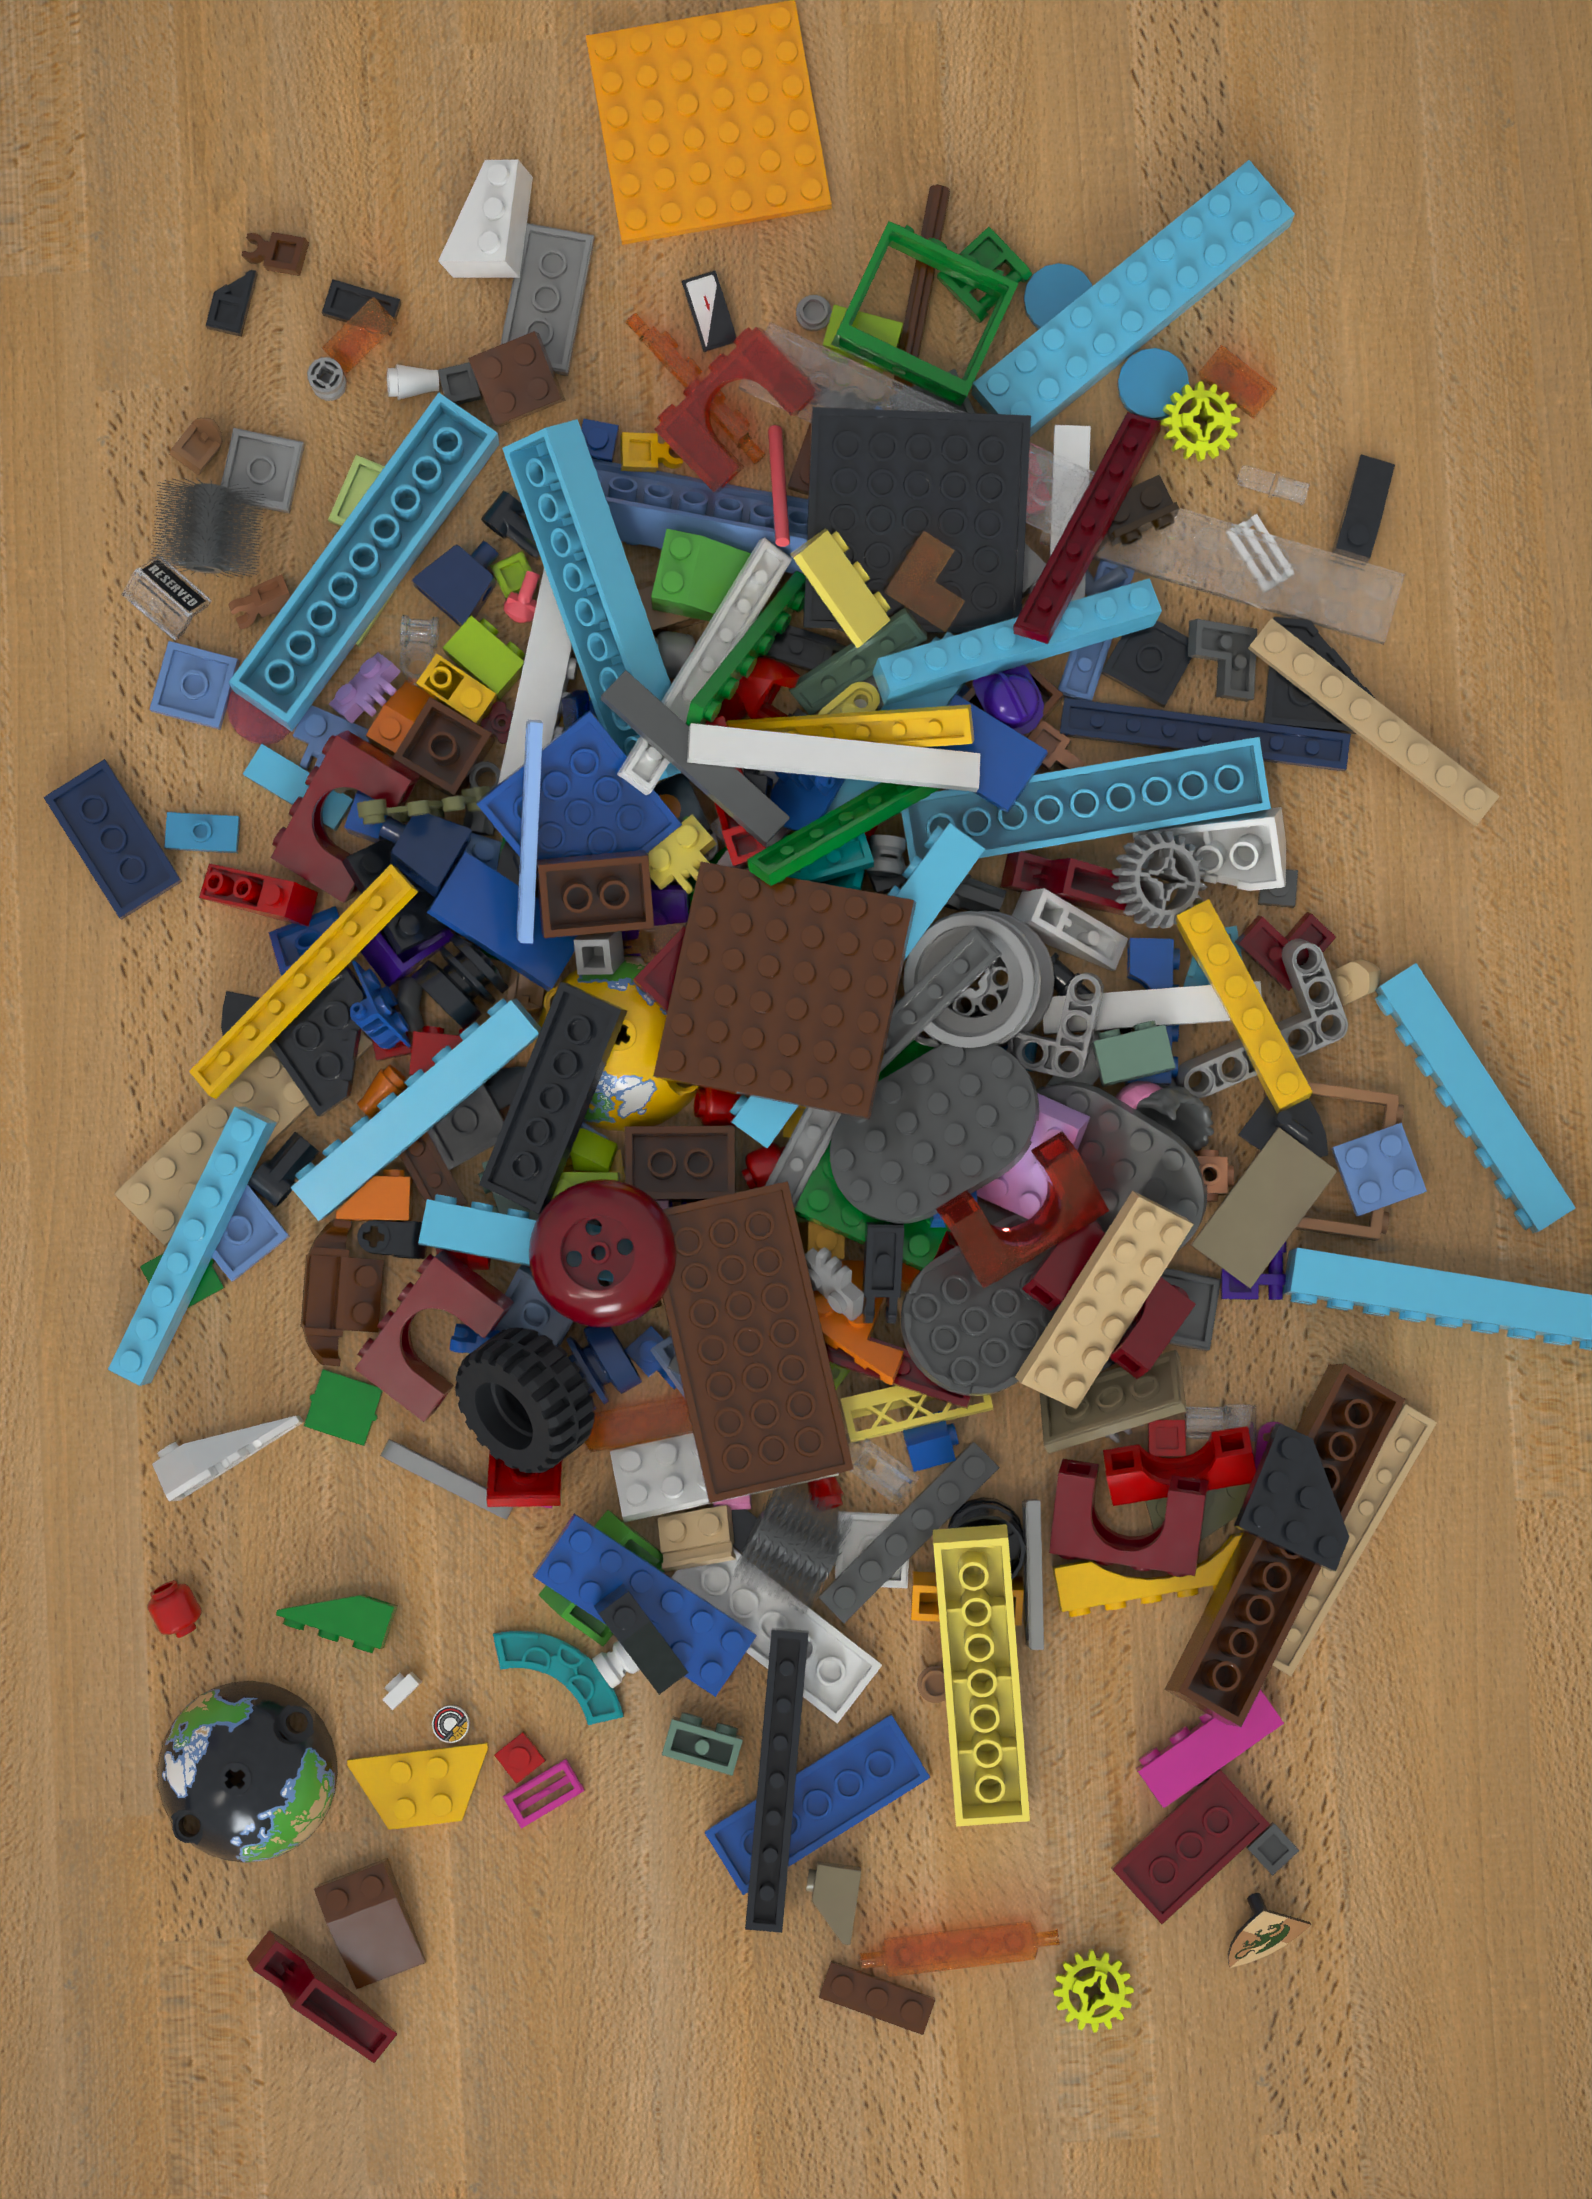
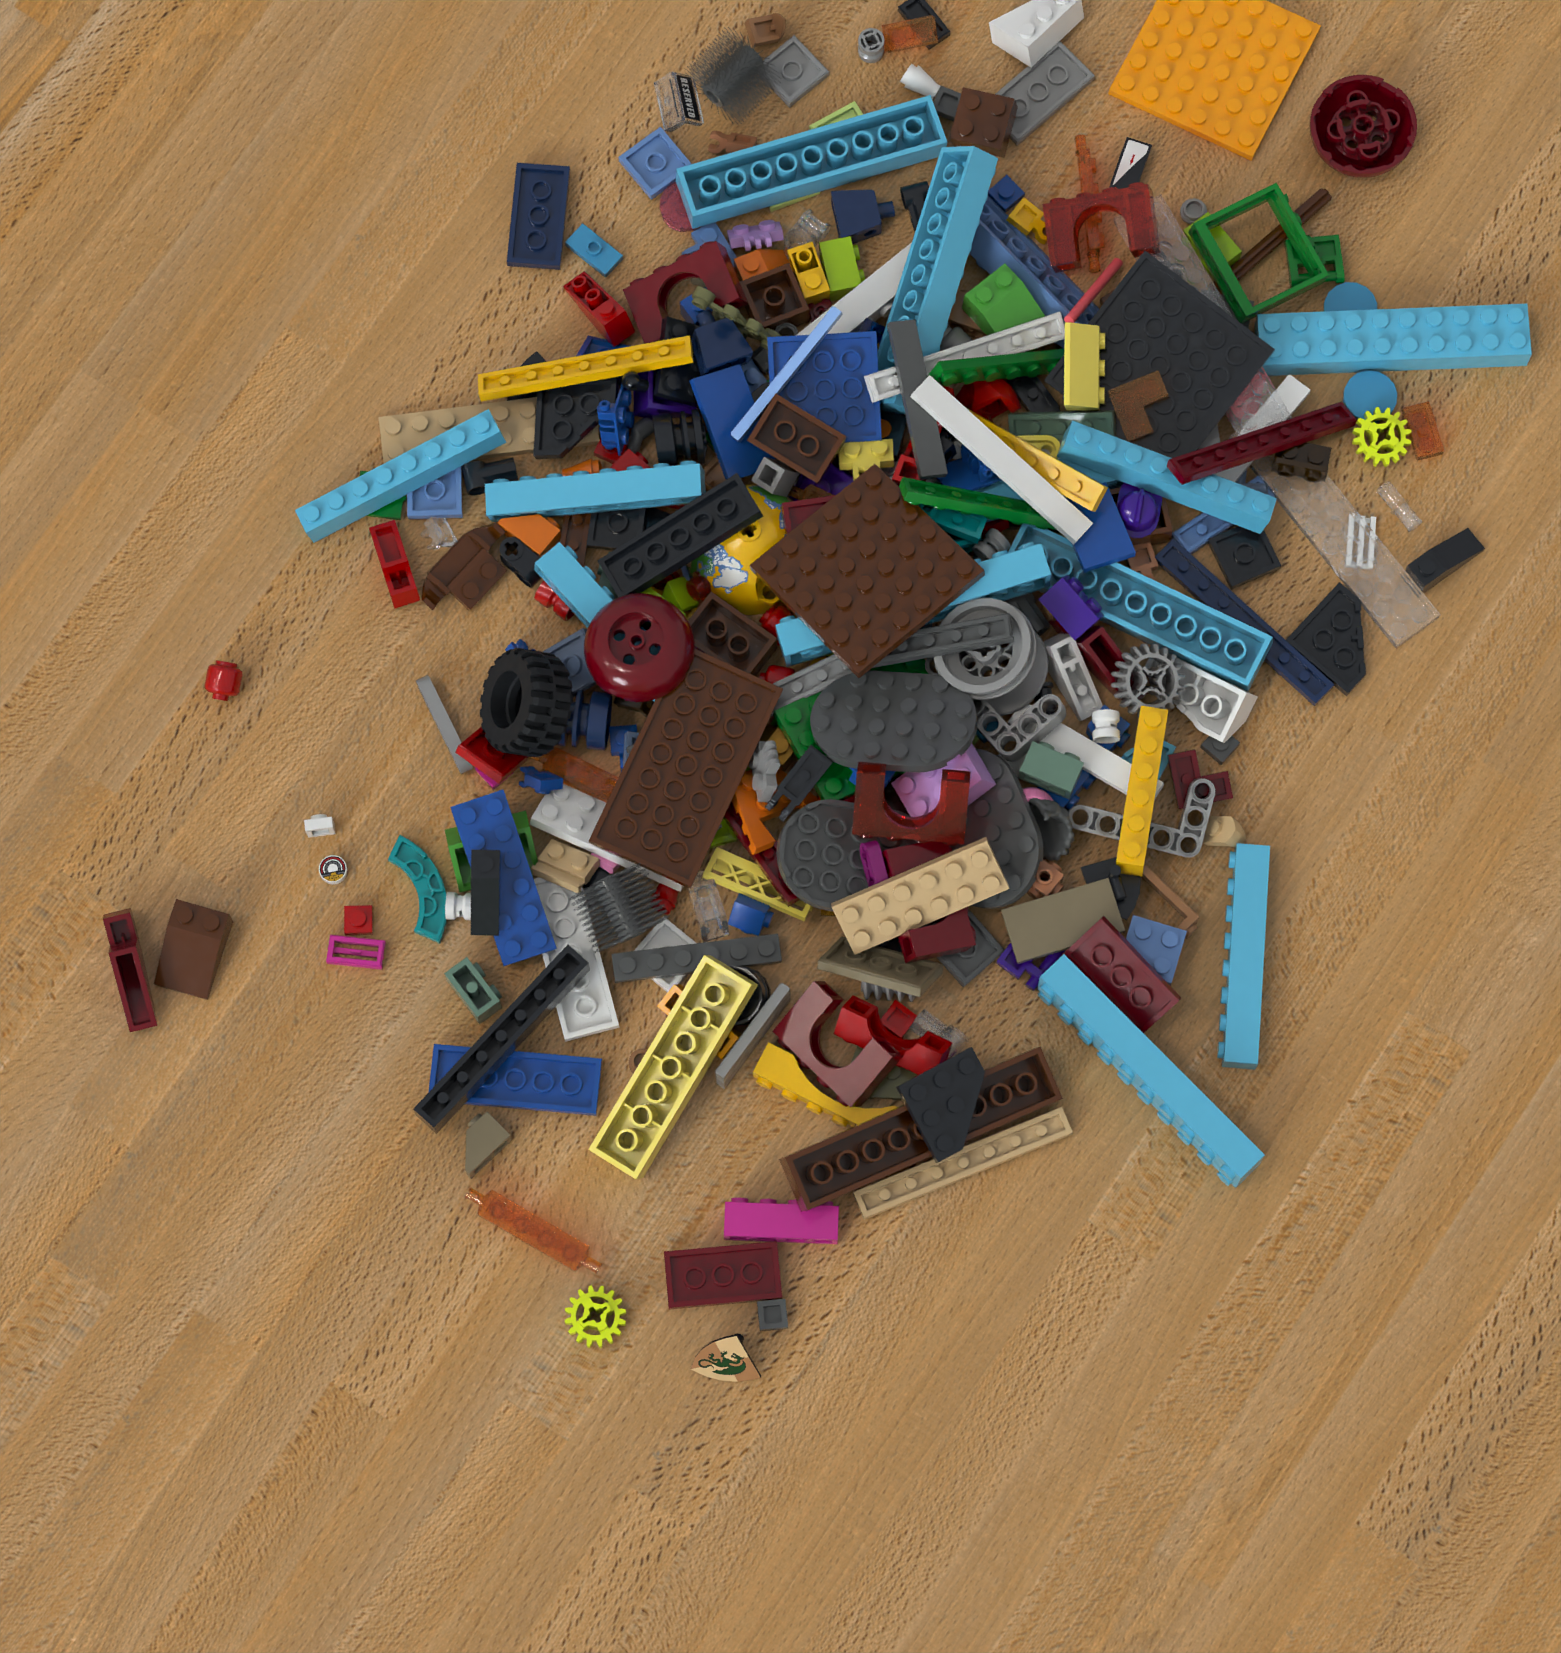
camera: 35 degrees right, 10 degrees down
(196, 1463) = (308, 607): white wedge -> none
(257, 1343) = (394, 564): none -> red slope
(280, 1273) = (440, 533): none -> clear tile
(285, 1779) = (193, 832): black piece -> none
(288, 782) = (665, 252): medium azure tile -> none
(343, 1407) = (415, 639): green piece -> none
(353, 1617) = (324, 761): green slope -> none
(367, 959) = (633, 382): none -> black arm
(391, 1359) = (466, 625): dark red arch -> none
(421, 1784) = (287, 892): yellow wing -> none
(511, 573) = (895, 235): lime tile -> none
(520, 605) = (884, 252): coral plate -> none
(601, 1467) = (542, 782): none -> blue plate
(606, 1130) = (698, 587): none -> clear red plate
(877, 1997) = (460, 1224): reddish brown plate -> none
(957, 56) = (1353, 99): none -> dark red brick
(1023, 860) = (1072, 606): none -> dark purple brick
(1027, 1301) = (873, 862): none -> magenta beam
(1153, 963) = (1106, 726): none -> white wheel
(1229, 647) = (1298, 580): dark grey plate -> none
(1372, 1223) = (1122, 974): none -> dark red plate
(1373, 722) = (1353, 686): tan plate -> none

